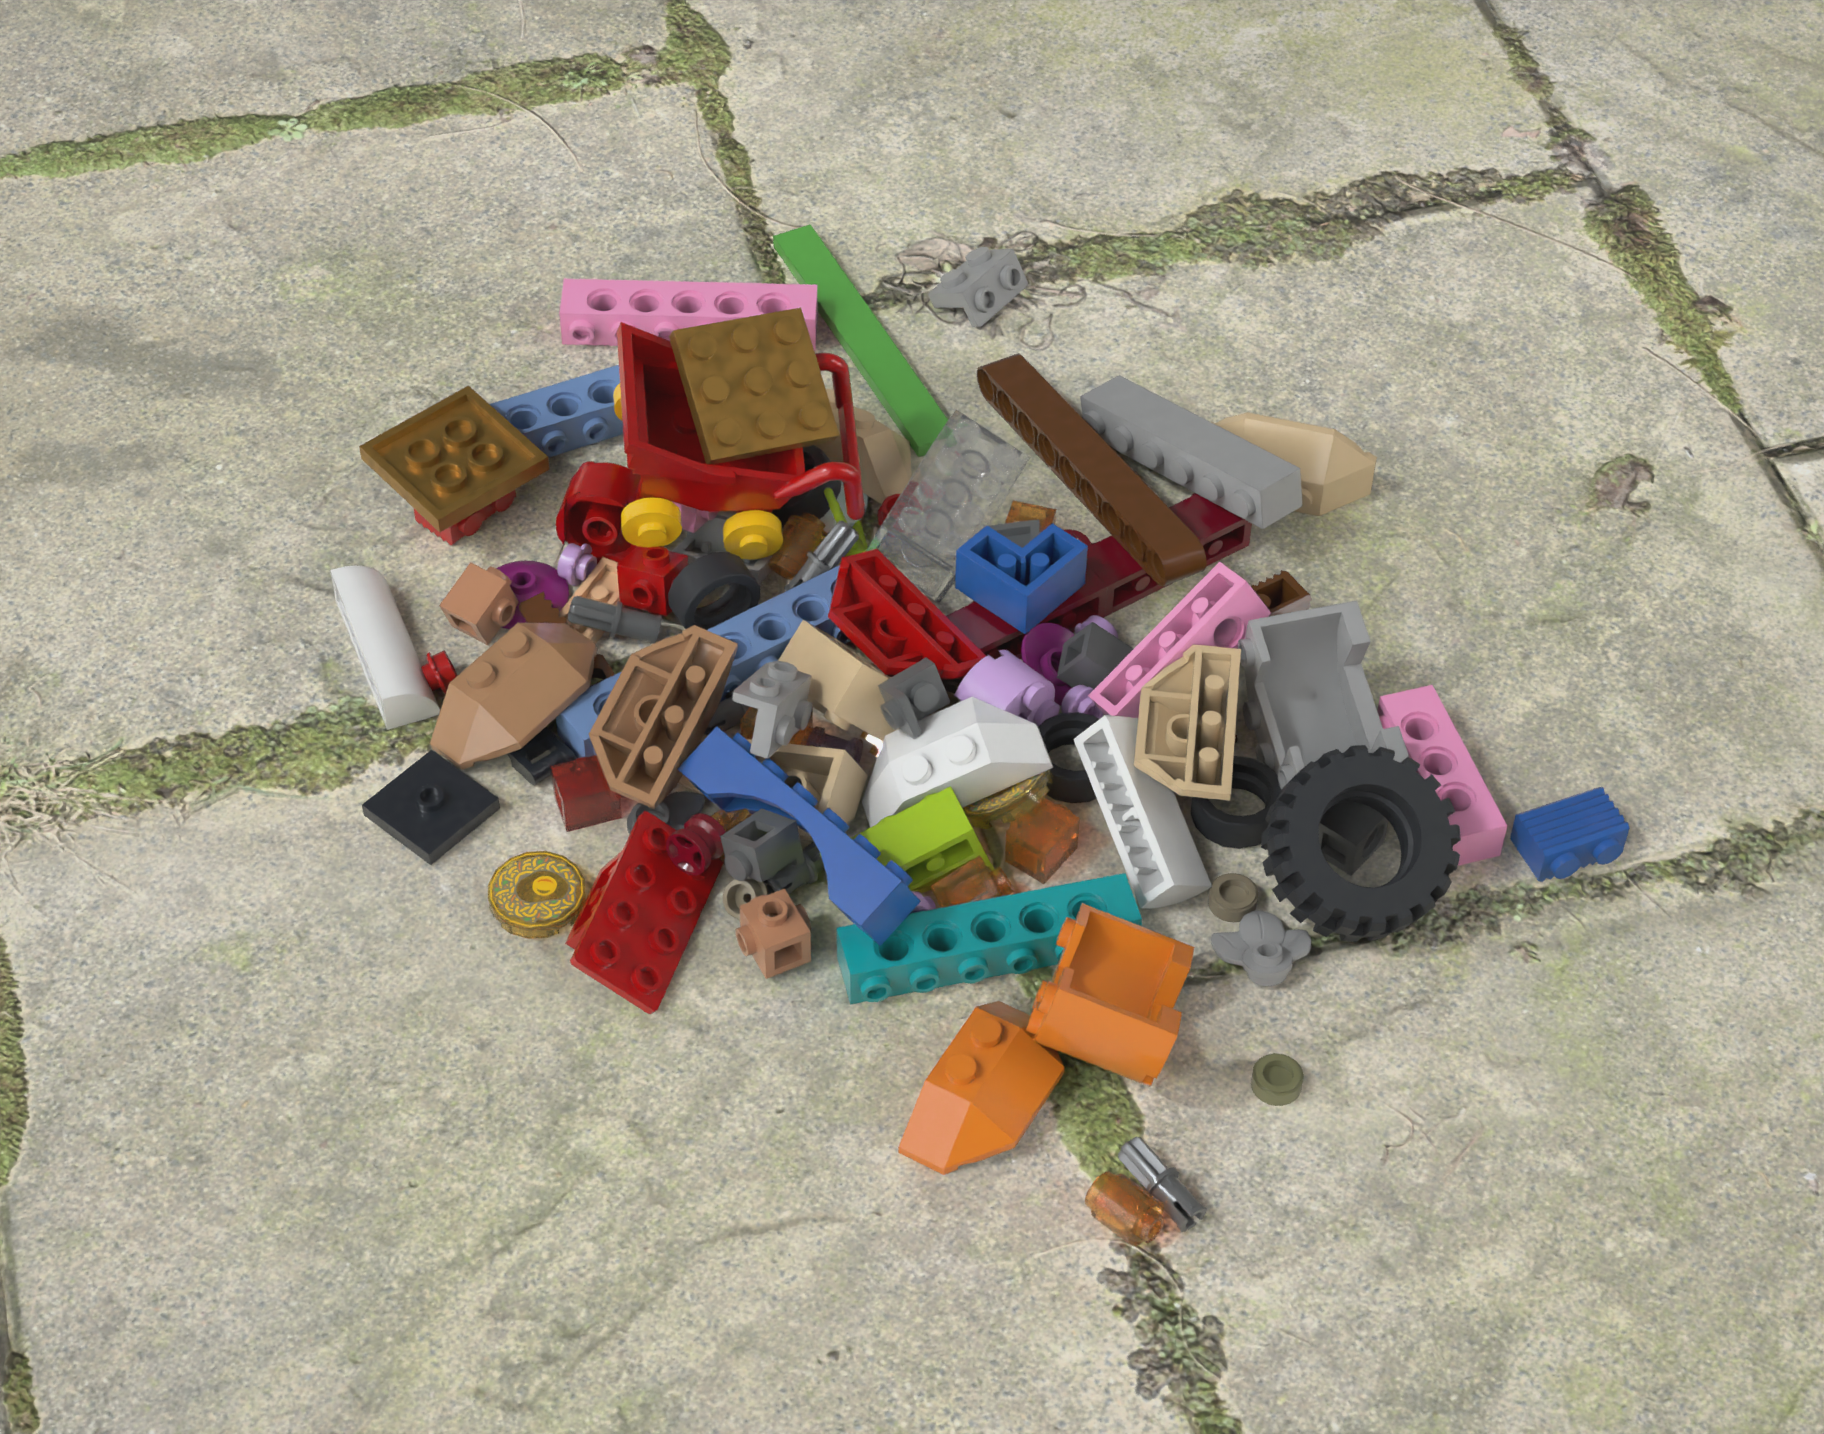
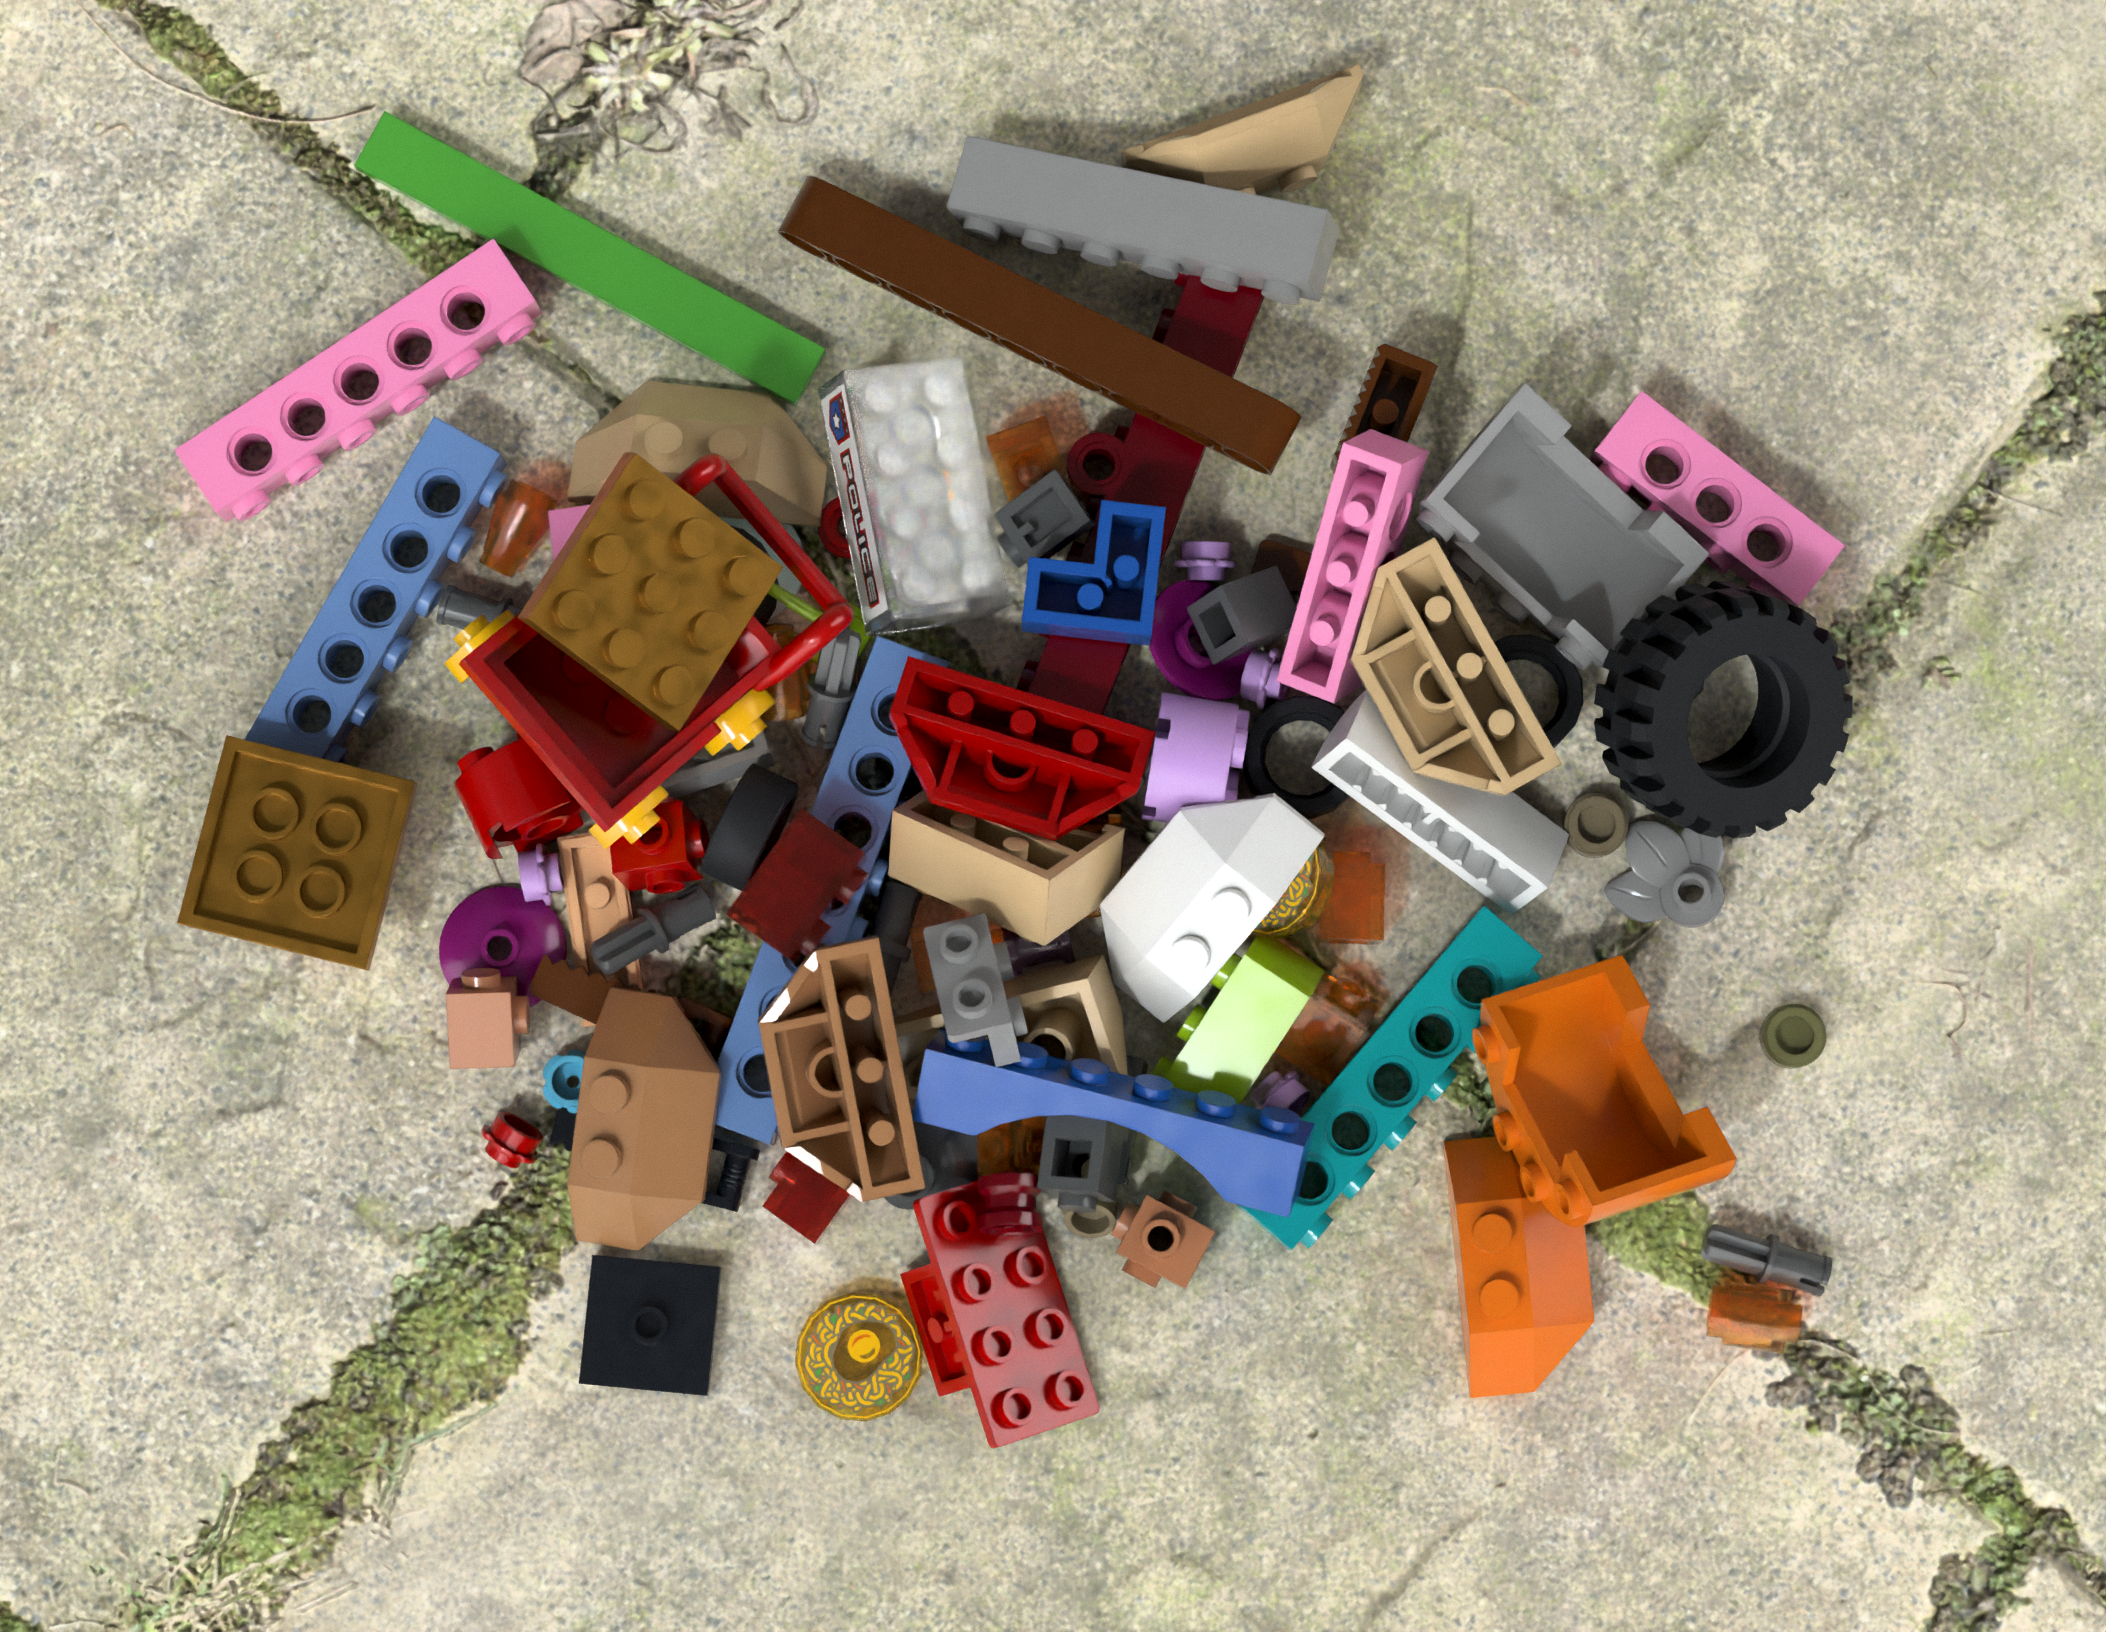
camera: 35 degrees left, 35 degrees up
(383, 646) = (415, 1147): white brick -> none
(722, 607) = (799, 887): none -> clear red brick
(912, 696) = (1109, 856): dark grey bracket -> none
(981, 284) = (670, 70): light grey bracket -> none
(1570, 834) = (1905, 489): blue brick -> none

